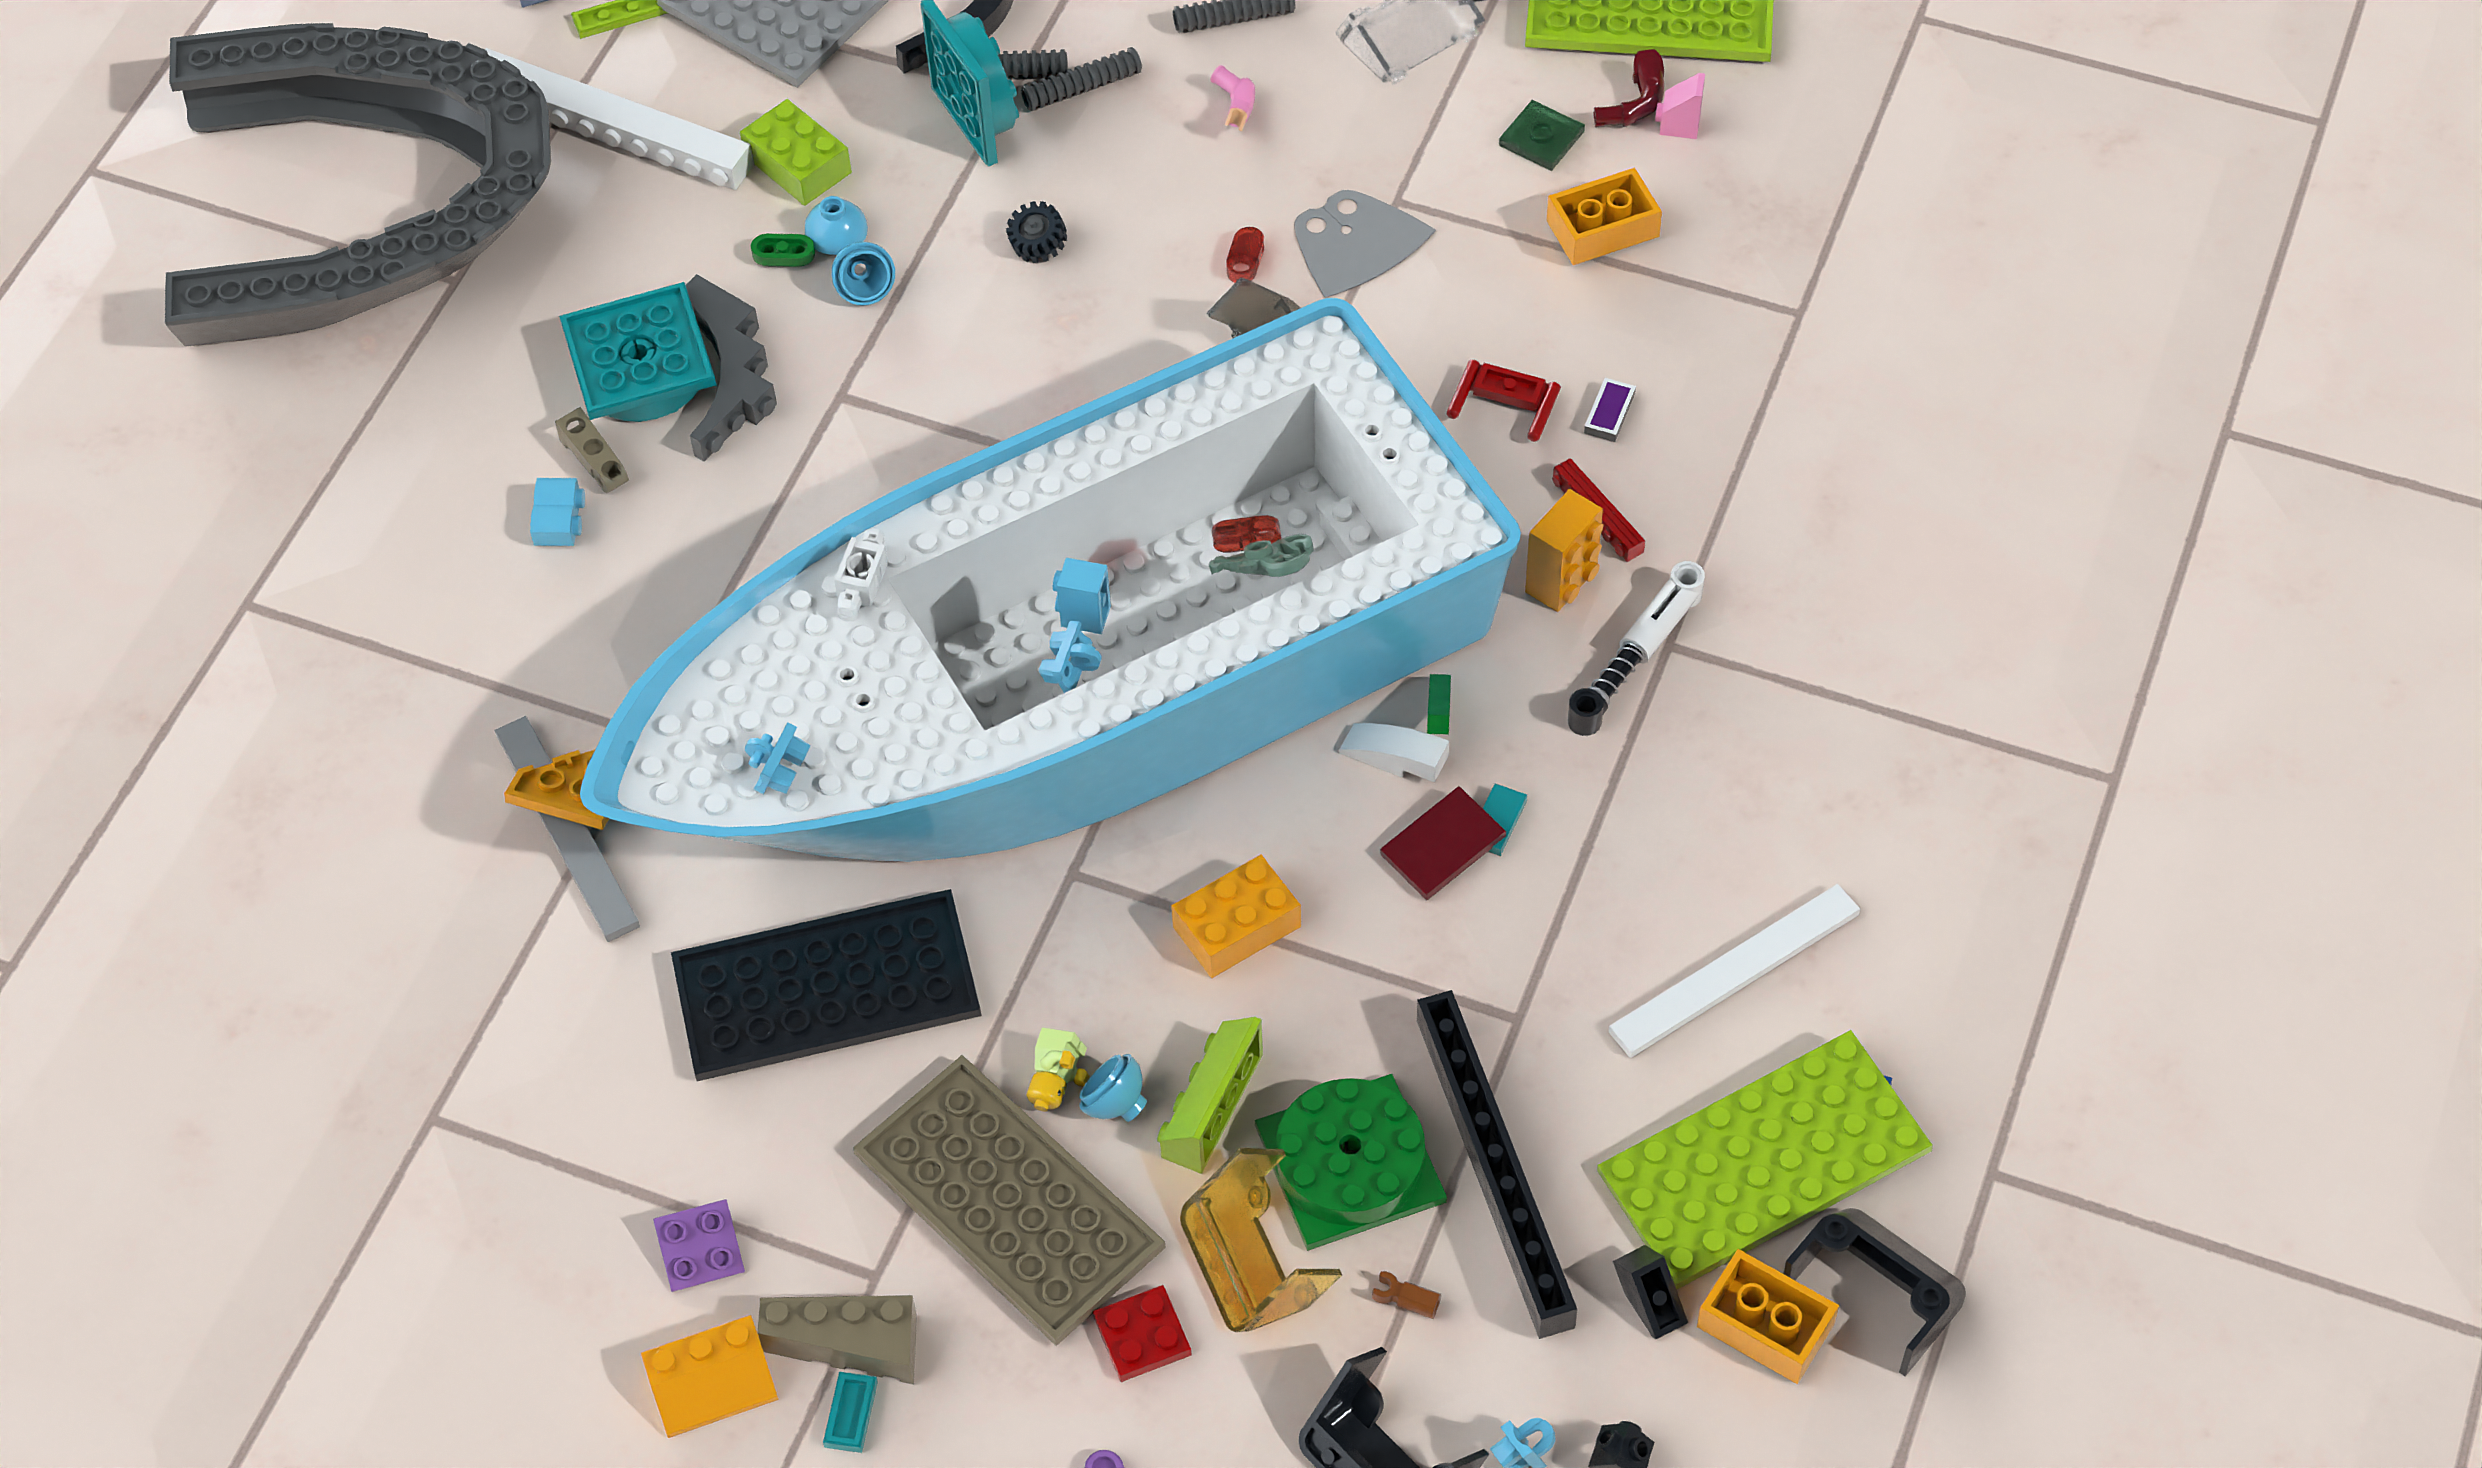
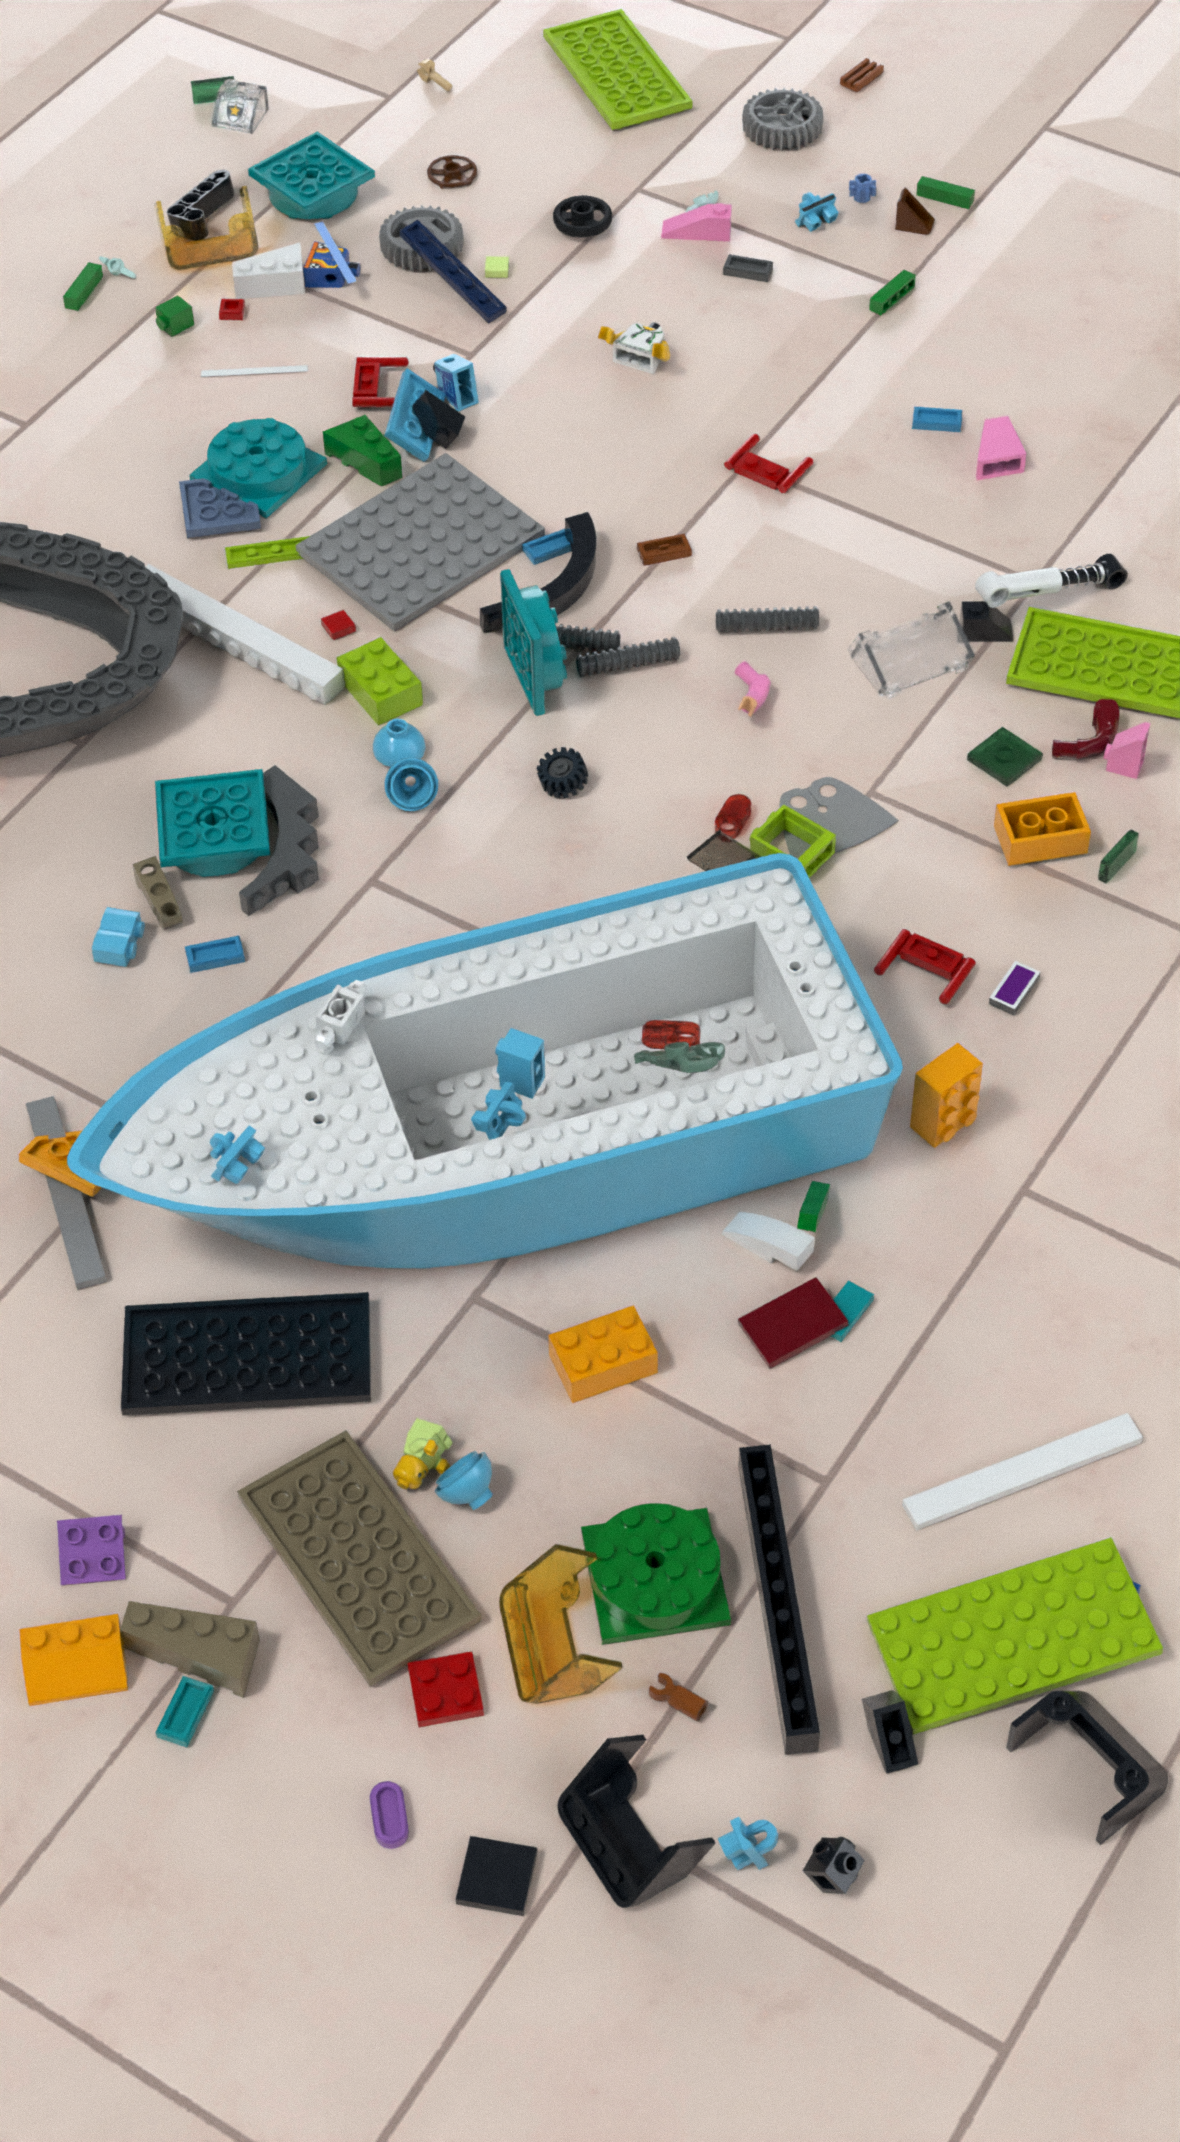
camera: 10 degrees right, 5 degrees down
(675, 514) = (214, 954): none -> dark azure tile
(729, 89) = (338, 624): none -> red tile
(782, 250) = (351, 757): green plate -> none
(1212, 1093) = (549, 1498): lime slope -> none
(1327, 255) = (820, 839): none -> lime window
(1616, 528) = (993, 1078): red piece -> none
(1637, 645) = (997, 1184): piece -> none
(1695, 235) = (1118, 856): none -> clear green tile
(1767, 1316) = (987, 1769): light orange brick -> none

